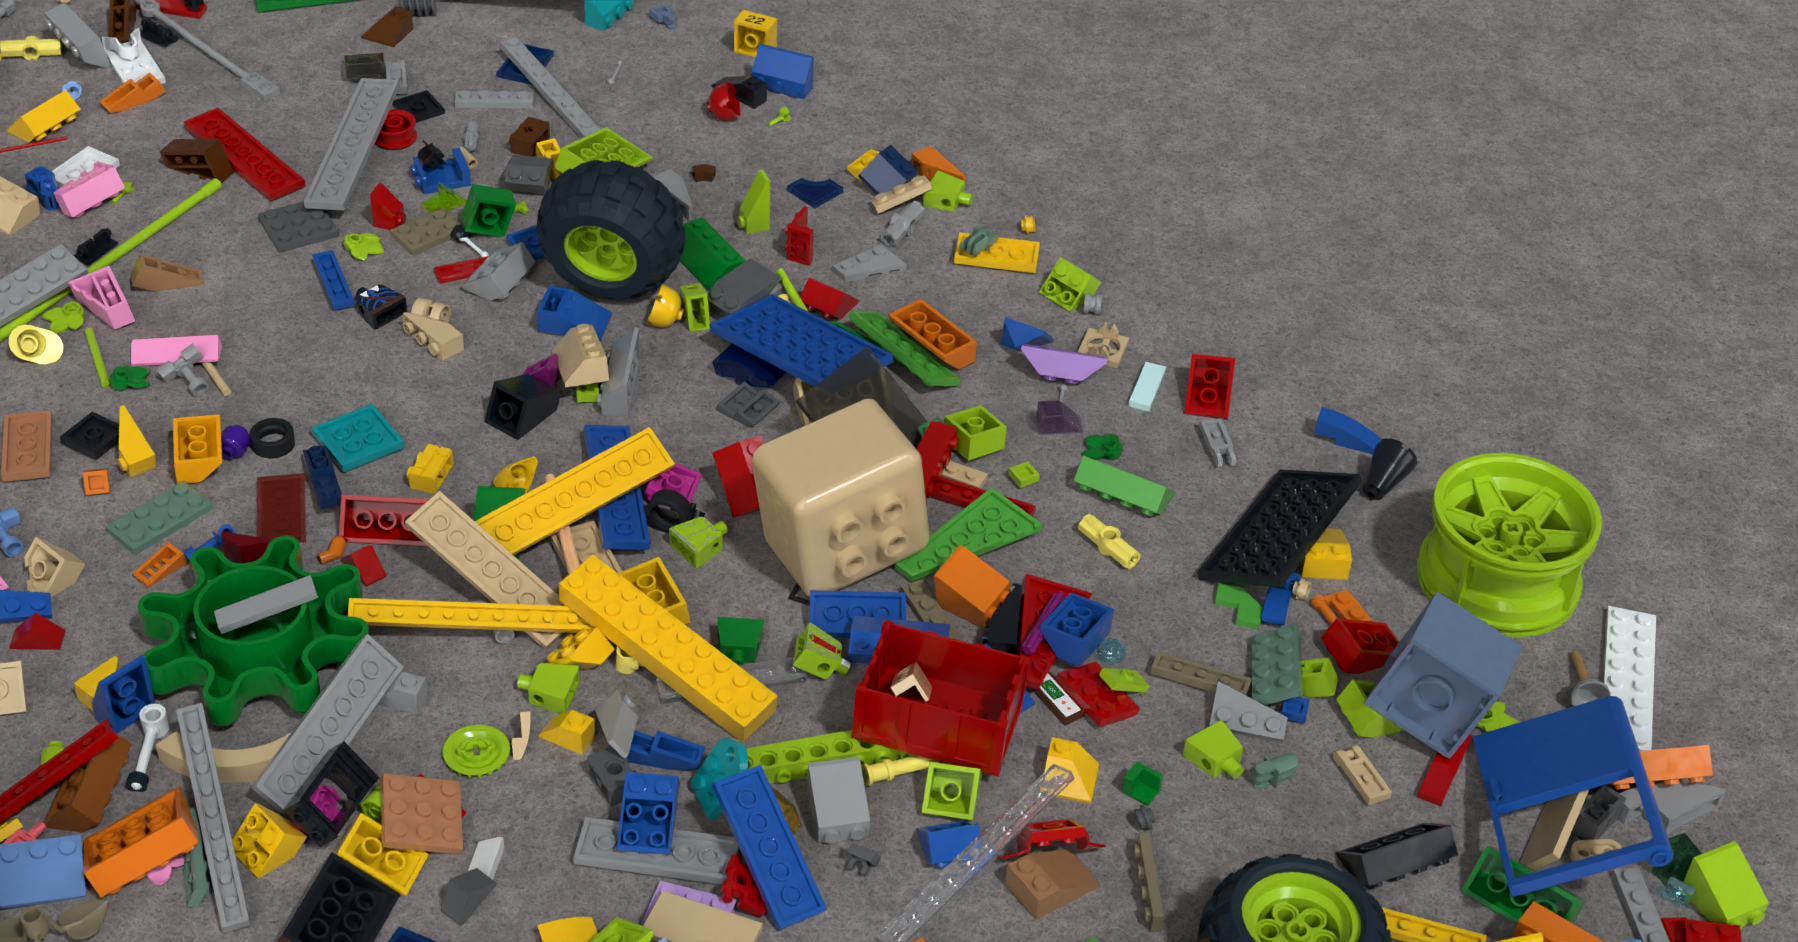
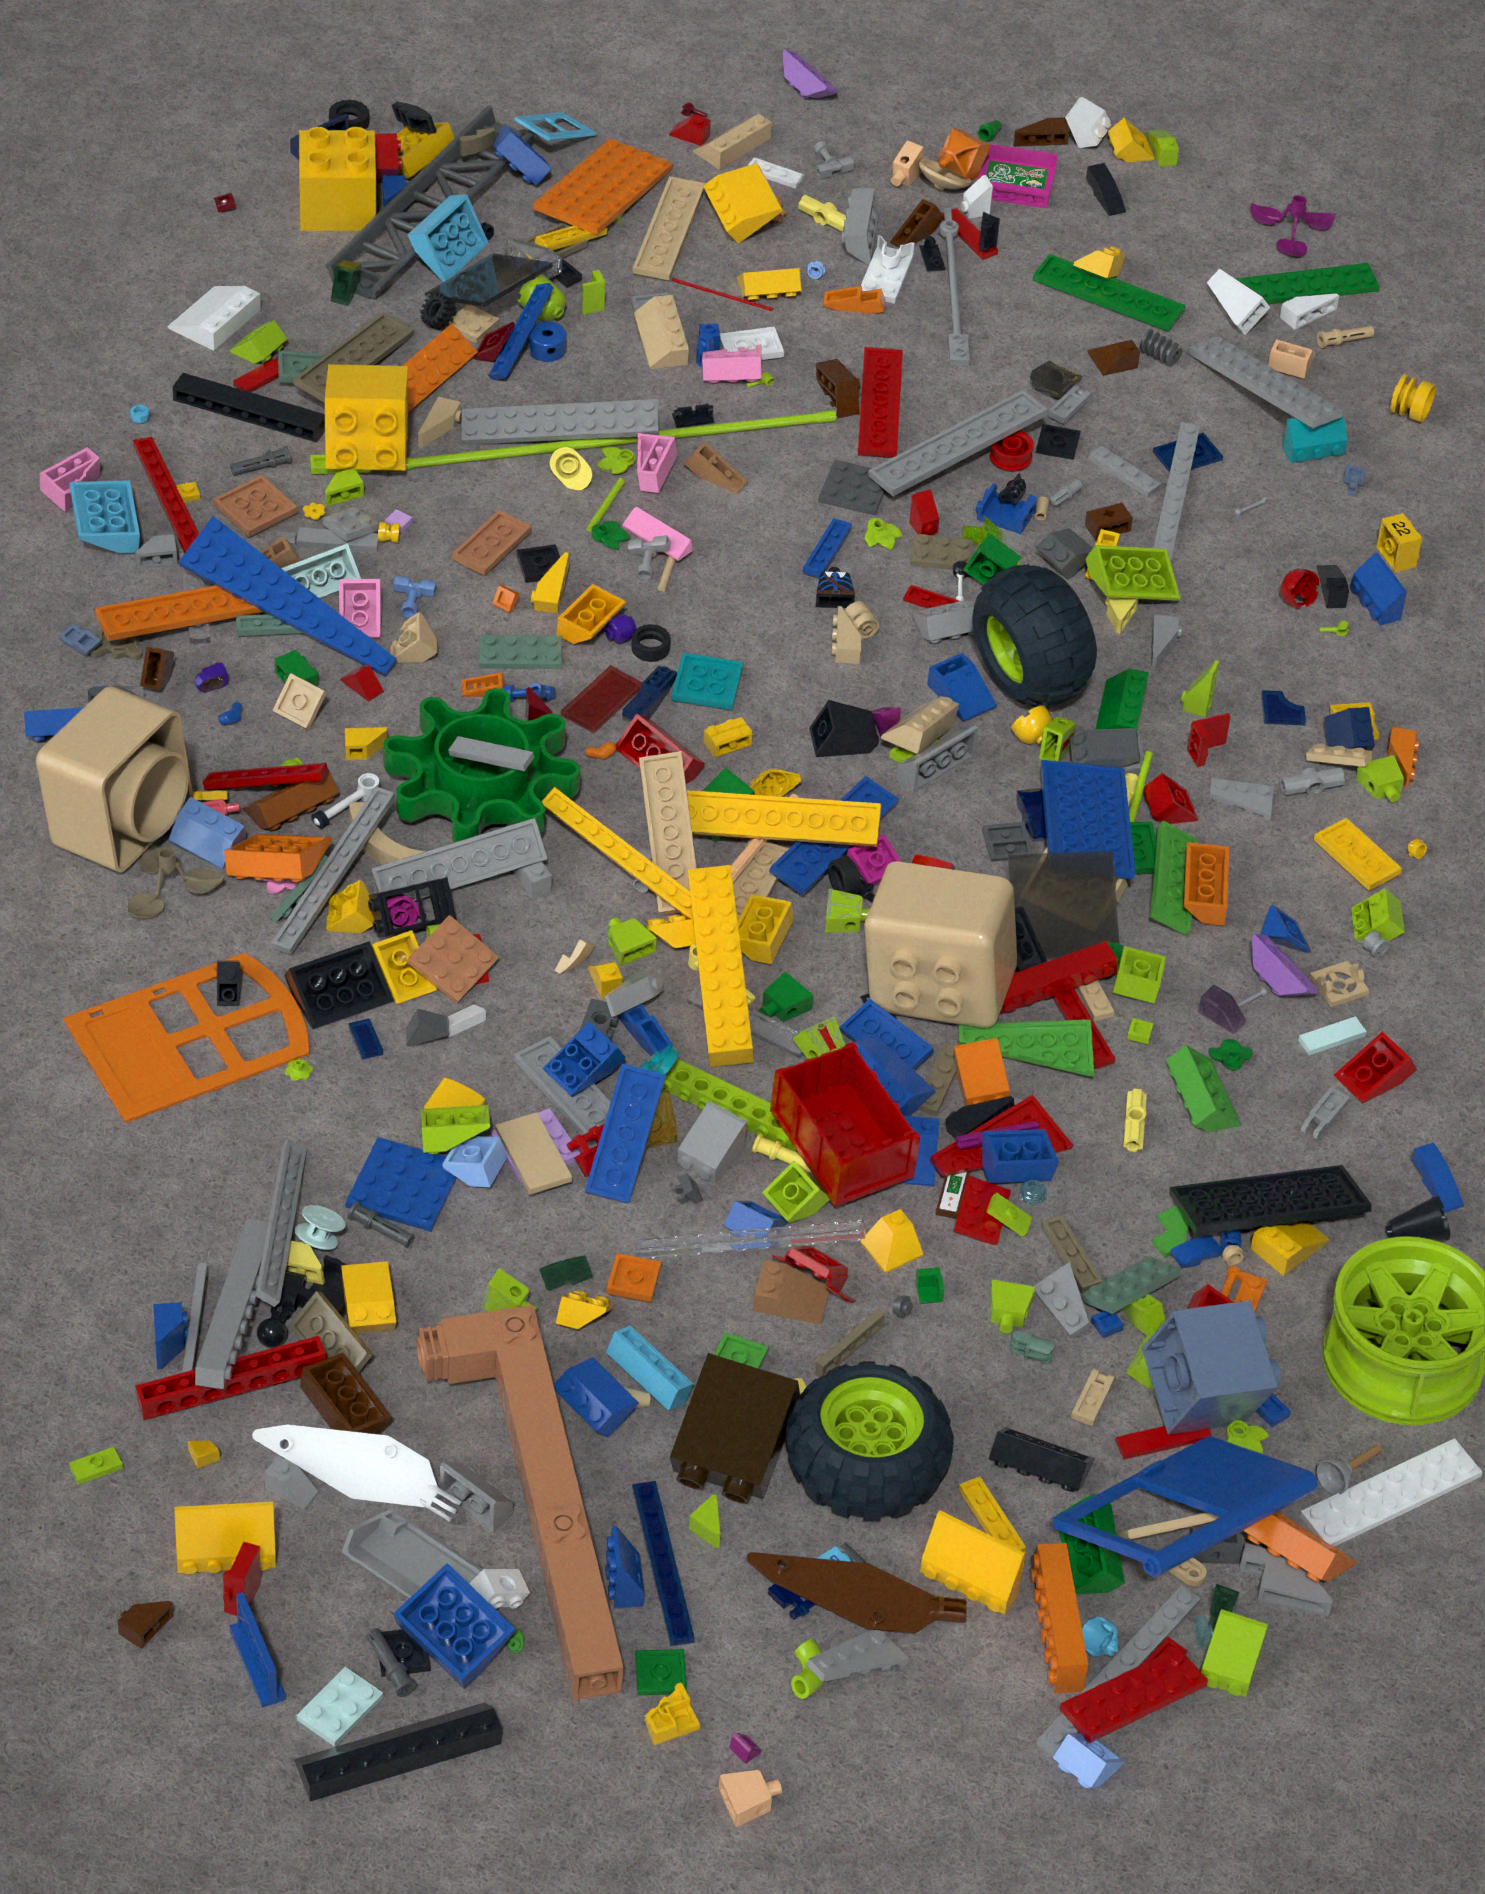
camera: 45 degrees right, 5 degrees up
(123, 695) = (361, 755): blue slope -> none
(367, 563) = (608, 776): red slope -> none
(460, 746) = (525, 940): lime gear -> none
(704, 172) = (1210, 637): reddish brown piece -> none
(909, 677) = (832, 1099): tan panel -> none
(979, 241) = (1345, 833): sand green arm -> none

